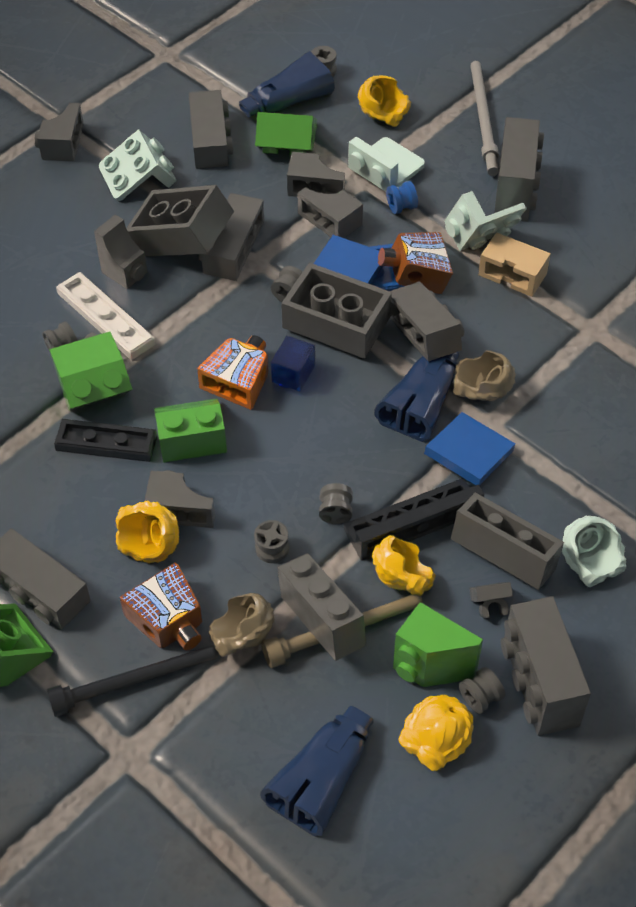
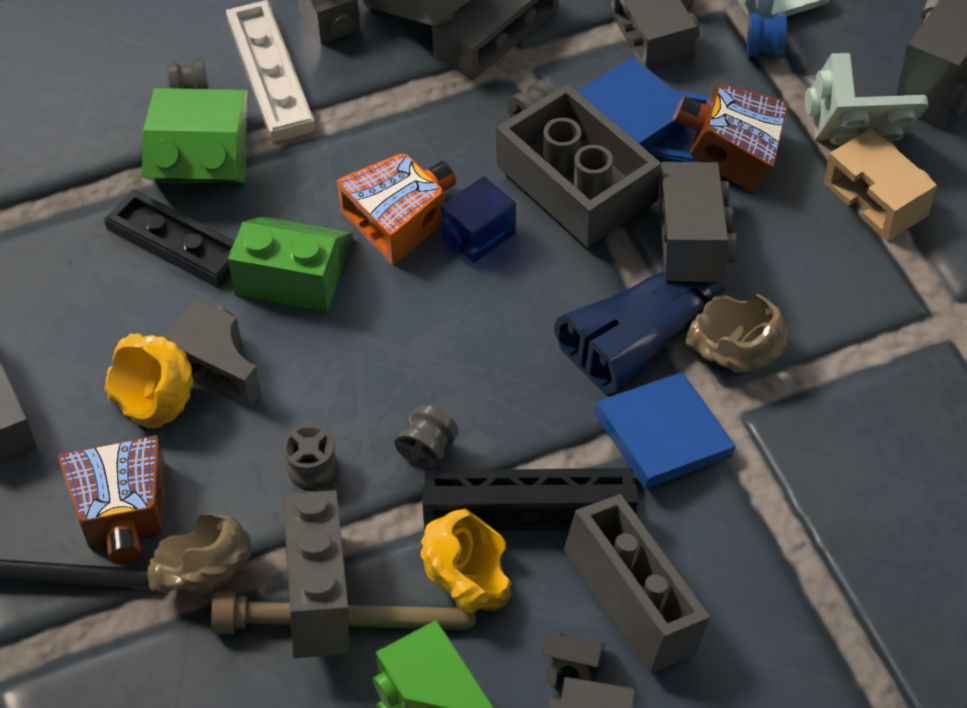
camera: 25 degrees right, 0 degrees up
(593, 549) = (763, 652): light aqua hair -> none

